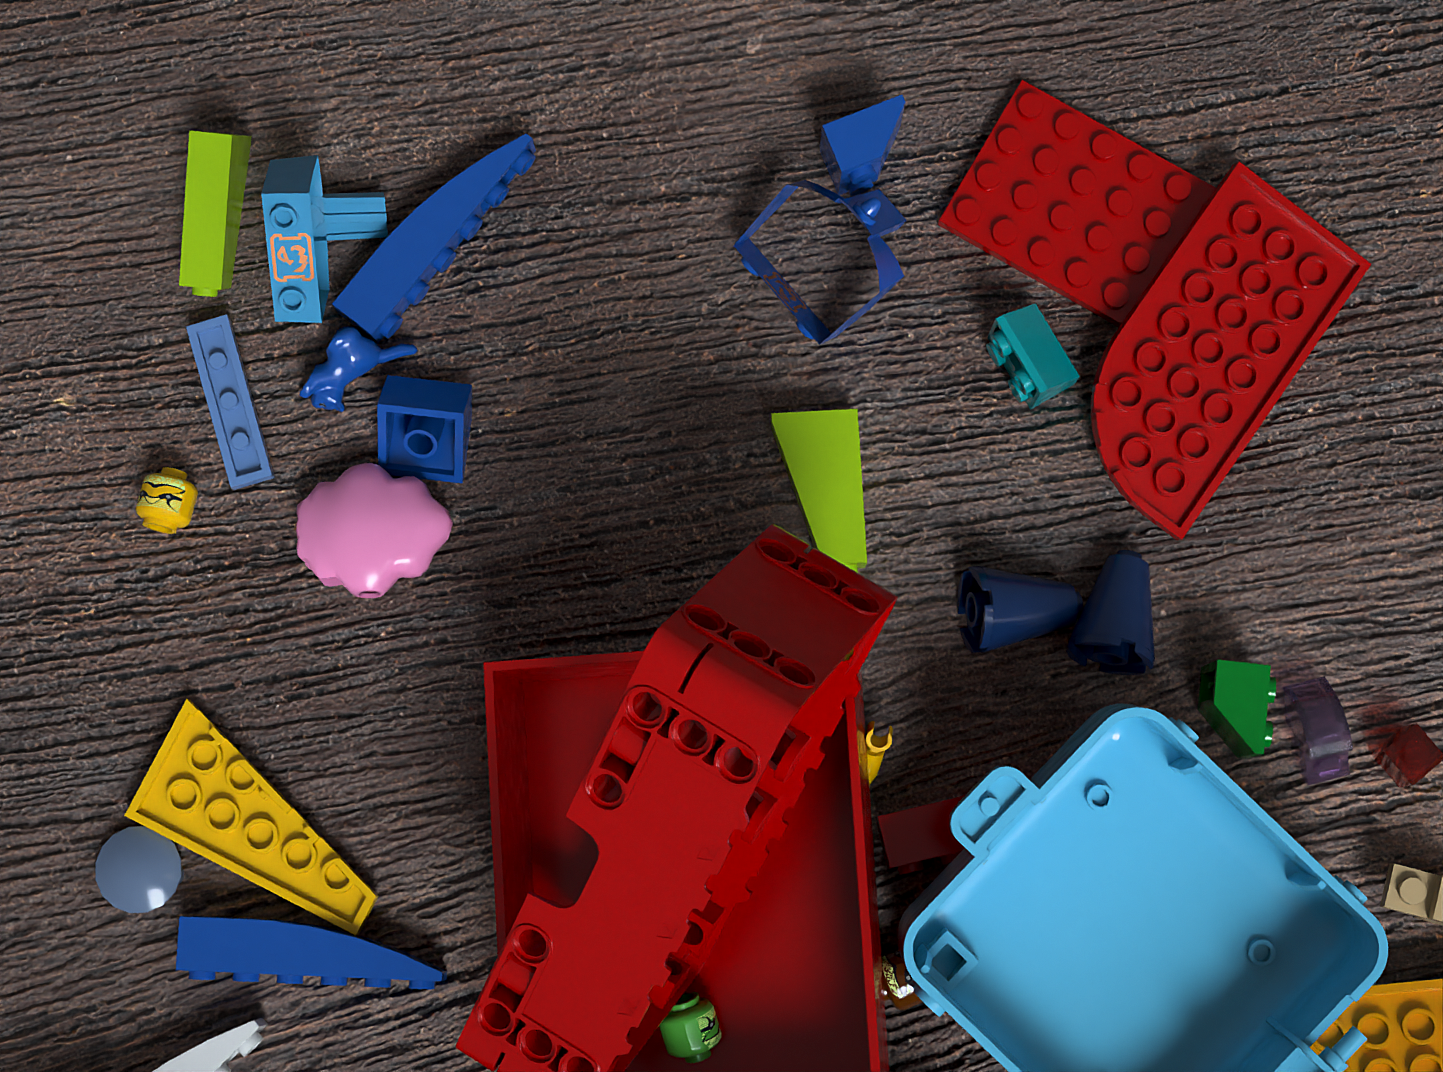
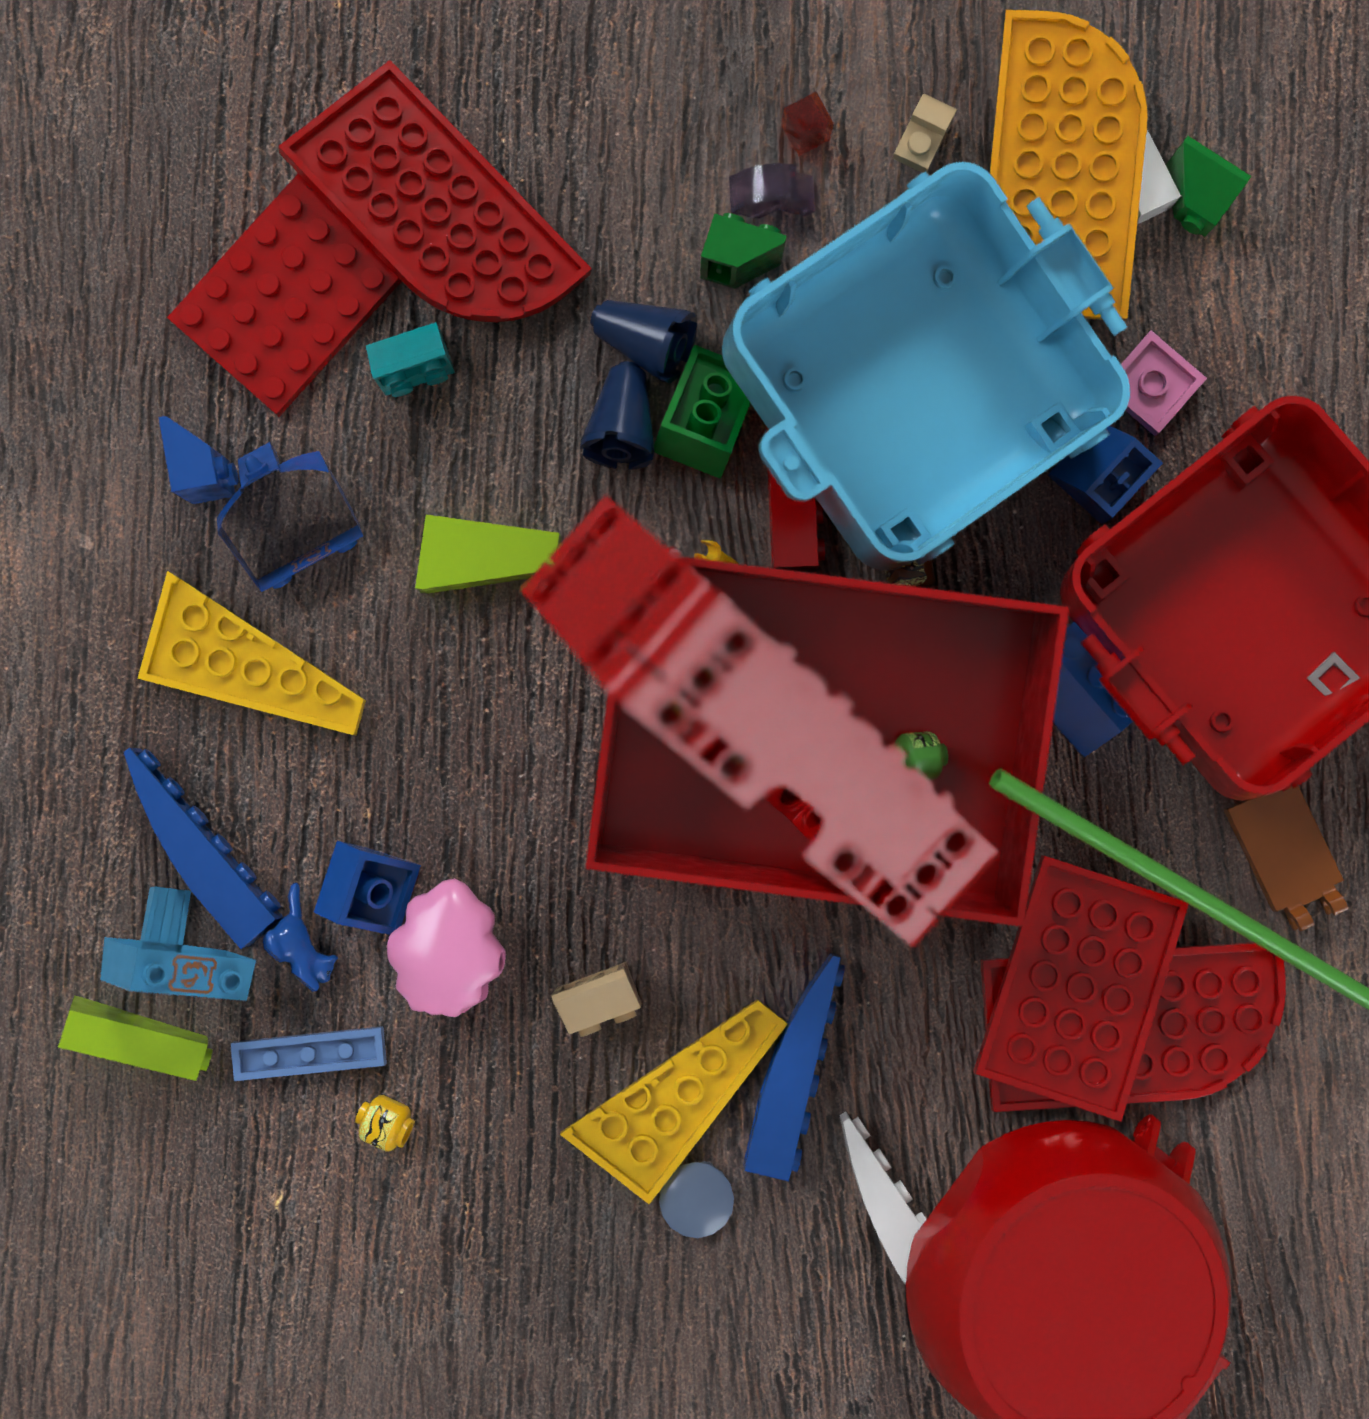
camera: 85 degrees left, 5 degrees up
(345, 710) = (597, 999): none -> tan slope
(653, 218) = (221, 656): none -> yellow wing
(1037, 699) = (703, 415): none -> green slope

